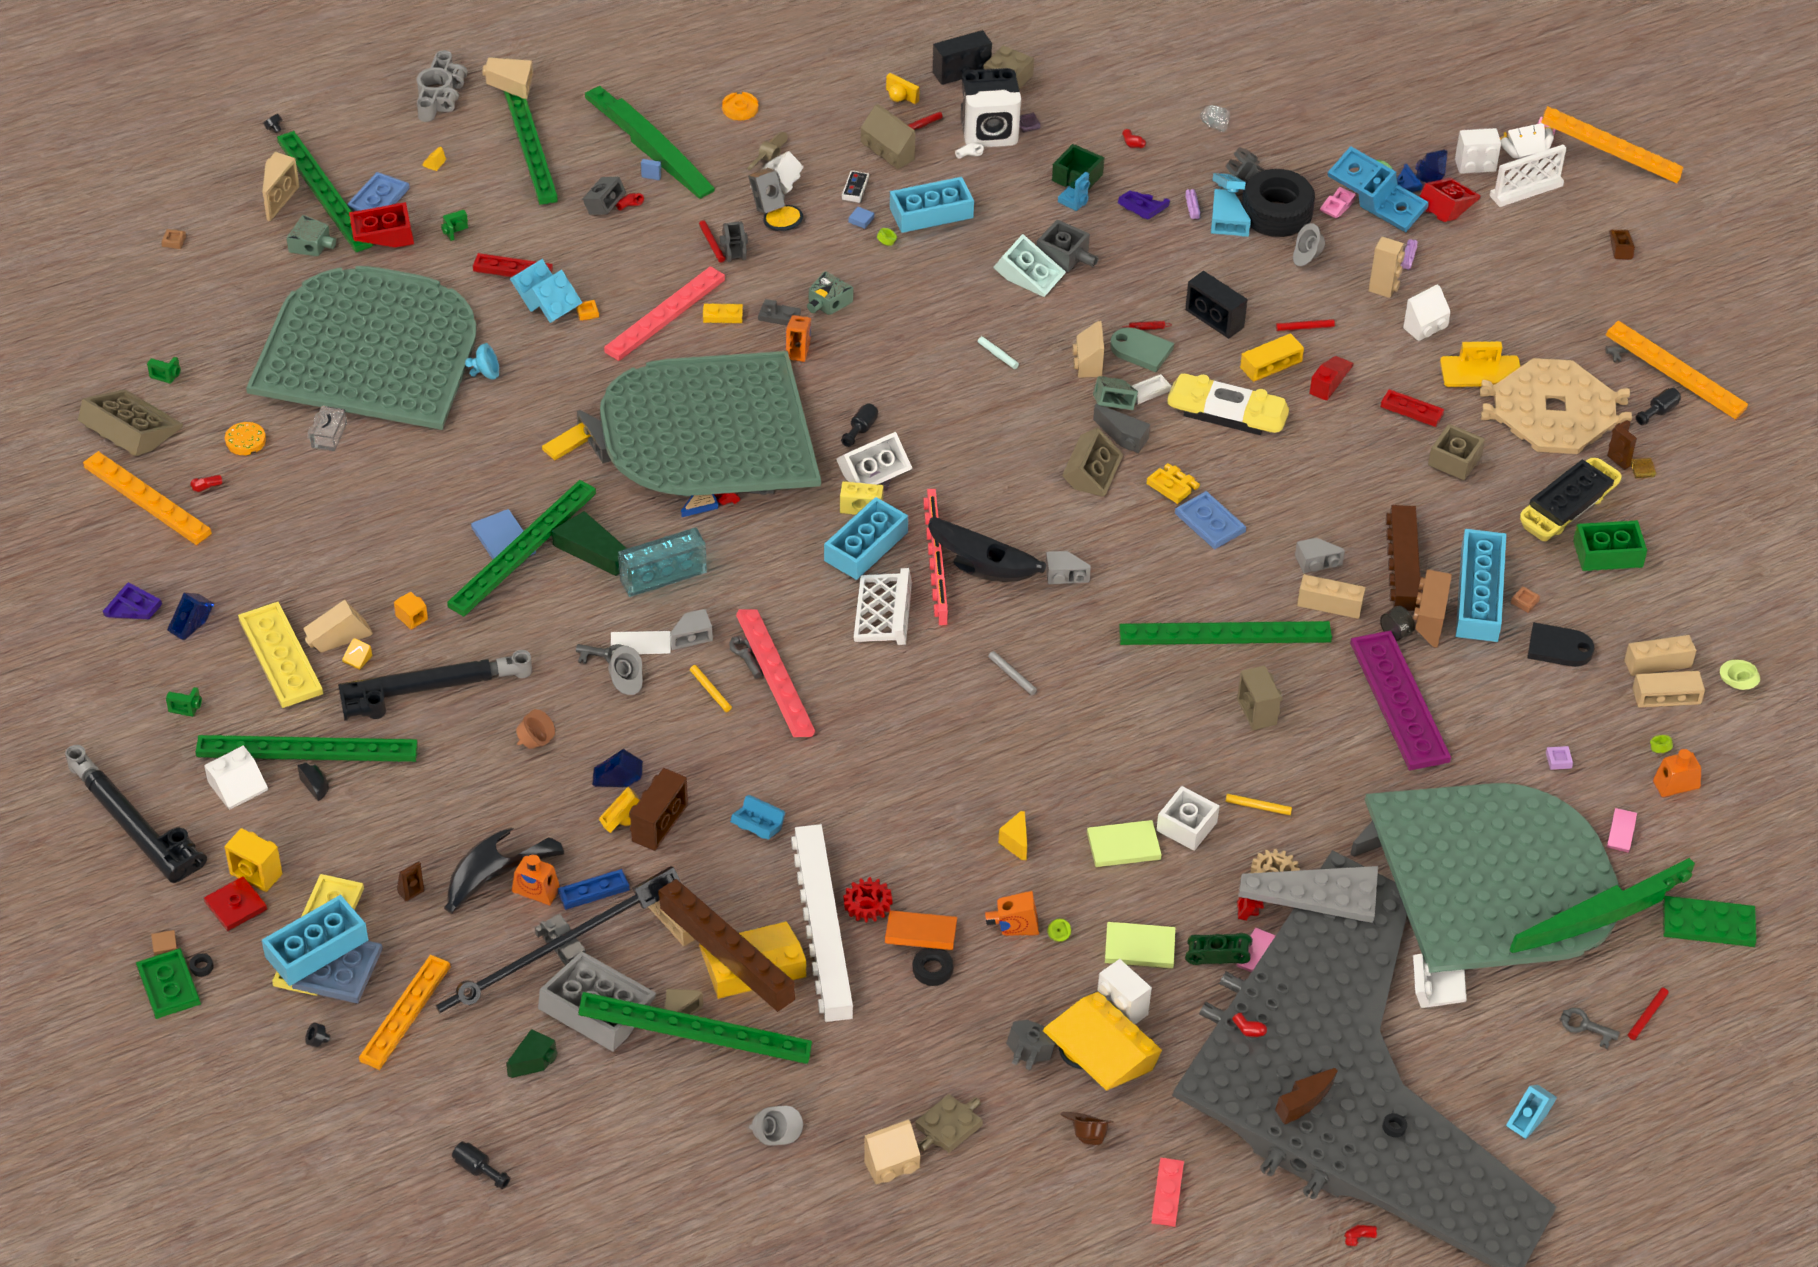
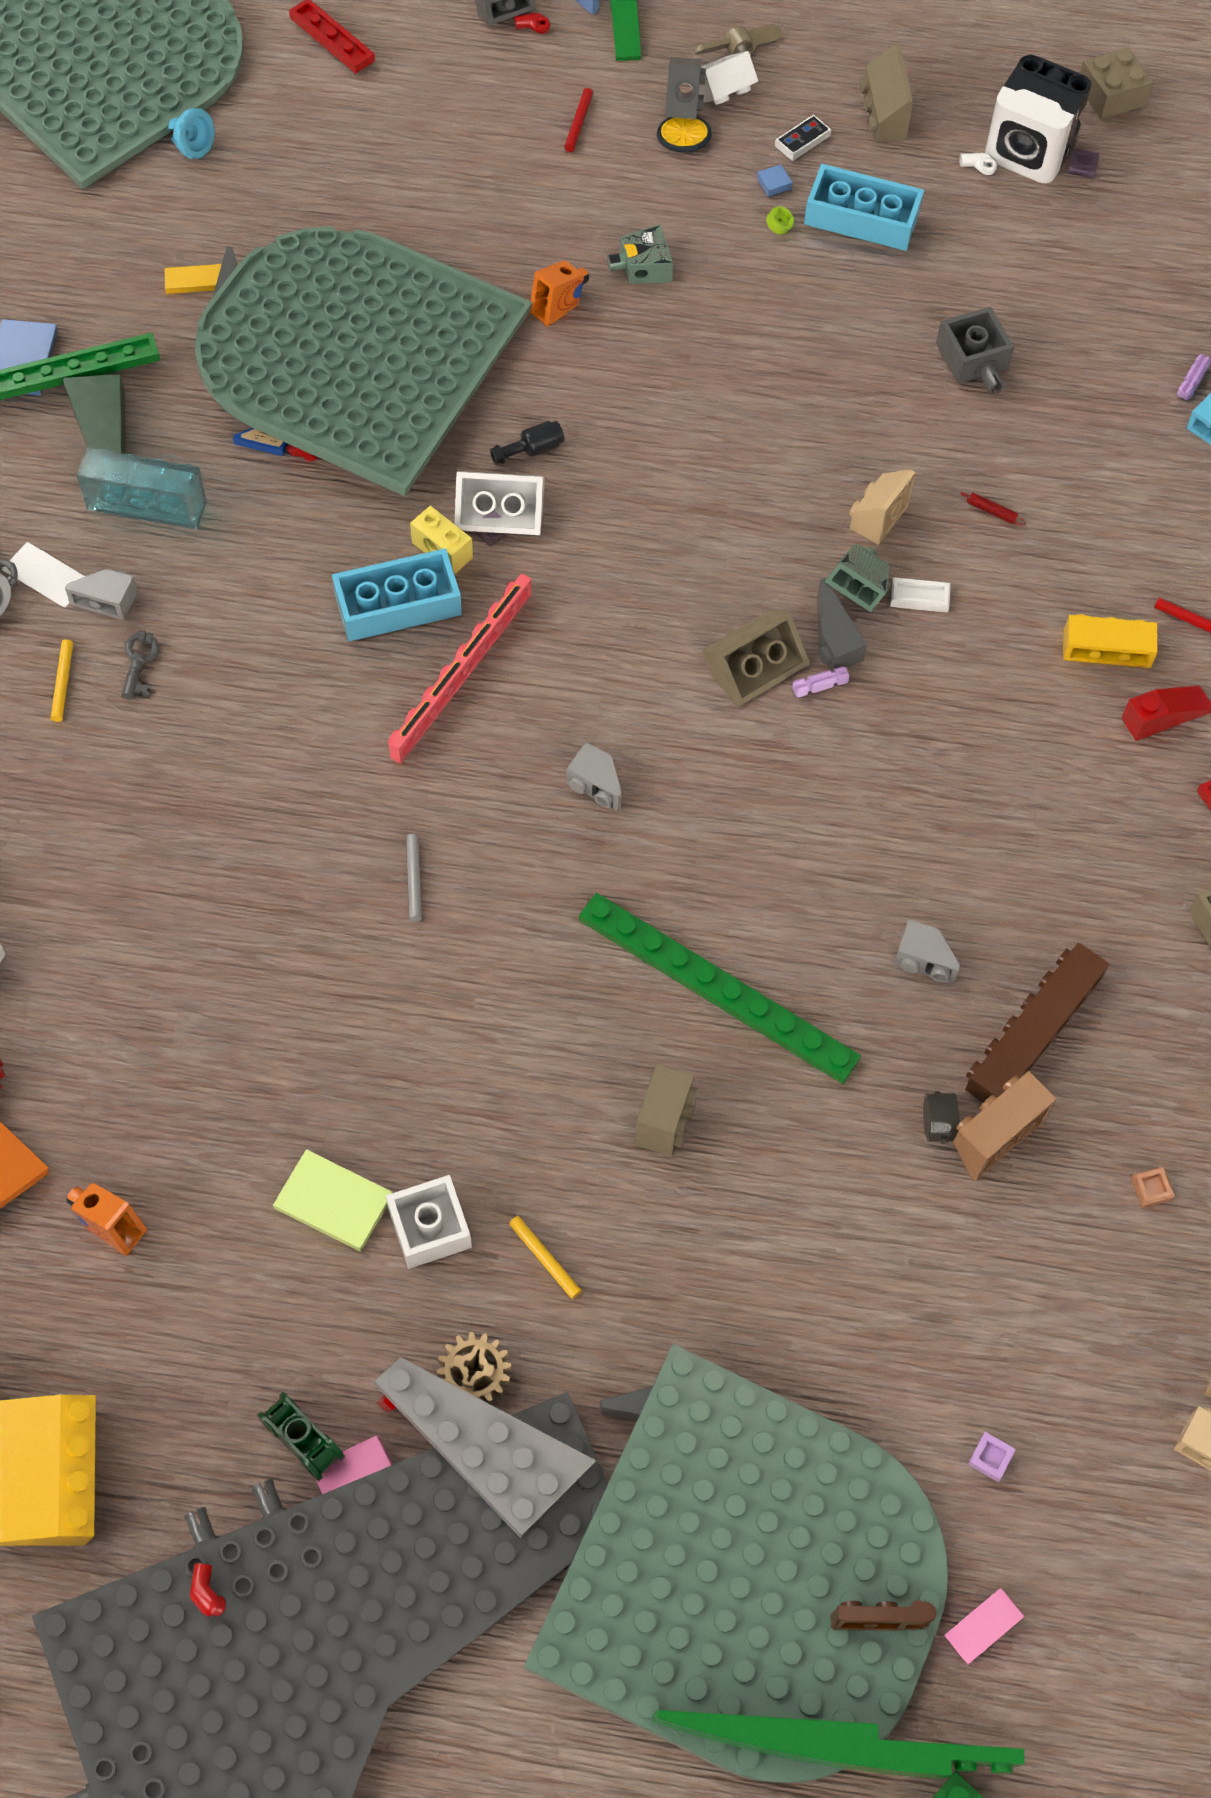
camera: 35 degrees right, 15 degrees up
(548, 291) = (332, 81): medium azure bracket -> none
(587, 310) = (366, 130): light orange tile -> none
(664, 313) = (445, 180): coral plate -> none
(722, 313) = (509, 215): yellow plate -> none
(734, 240) = (592, 131): dark grey hinge -> none
(775, 673) = (144, 707): coral plate -> none
(777, 314) = (569, 248): dark grey hinge -> none
(900, 611) = (359, 708): white fence -> none
(901, 89) = (963, 43): yellow tile -> none
(925, 121) = (952, 97): red piece -> none
(960, 55) = (1067, 34): black brick -> none
(983, 555) = (505, 697): black piece -> none
(998, 352) = (779, 442): light aqua piece -> none
(1014, 837) = (213, 1102): yellow slope -> none
(1029, 267) = (912, 351): light aqua slope -> none
(1059, 930) = (146, 1269): lime tile -> none
(1076, 162) = (1083, 254): dark green piece -> none
(1076, 197) = (1055, 287): dark azure bracket -> none
(1125, 991) = (122, 1420): white brick -> none
(1132, 140) = (1192, 254): red arm -> none
(1137, 459) = (820, 681): none -> lavender axle
(1140, 944) = (224, 1357): yellowish green tile -> none
(1141, 348) = (959, 536): sand green tile -> none
(1142, 204) = (1129, 344): dark purple wing -> none
(1168, 484) = (826, 743): yellow plate -> none
(1210, 520) = (838, 818): medium blue tile -> none
(1216, 304) = (1095, 529): black brick -> none
(1228, 404) = (995, 675): piece -> none
(1305, 1095) = (181, 1751): reddish brown slope -> none
(1331, 596) = (891, 1022): tan brick -> none
(1400, 700) = (852, 1231): magenta plate -> none
(1438, 987) = (523, 1696): white bracket -> none
(1481, 585) = (1100, 1132): medium azure brick -> none
(1559, 645) = (1139, 1285): black tile -> none
(1575, 846) = (883, 1616): none -> reddish brown hinge
(1661, 744) = (1153, 1531): lime tile -> none
(1678, 774) = (1131, 1598): orange torso -> none

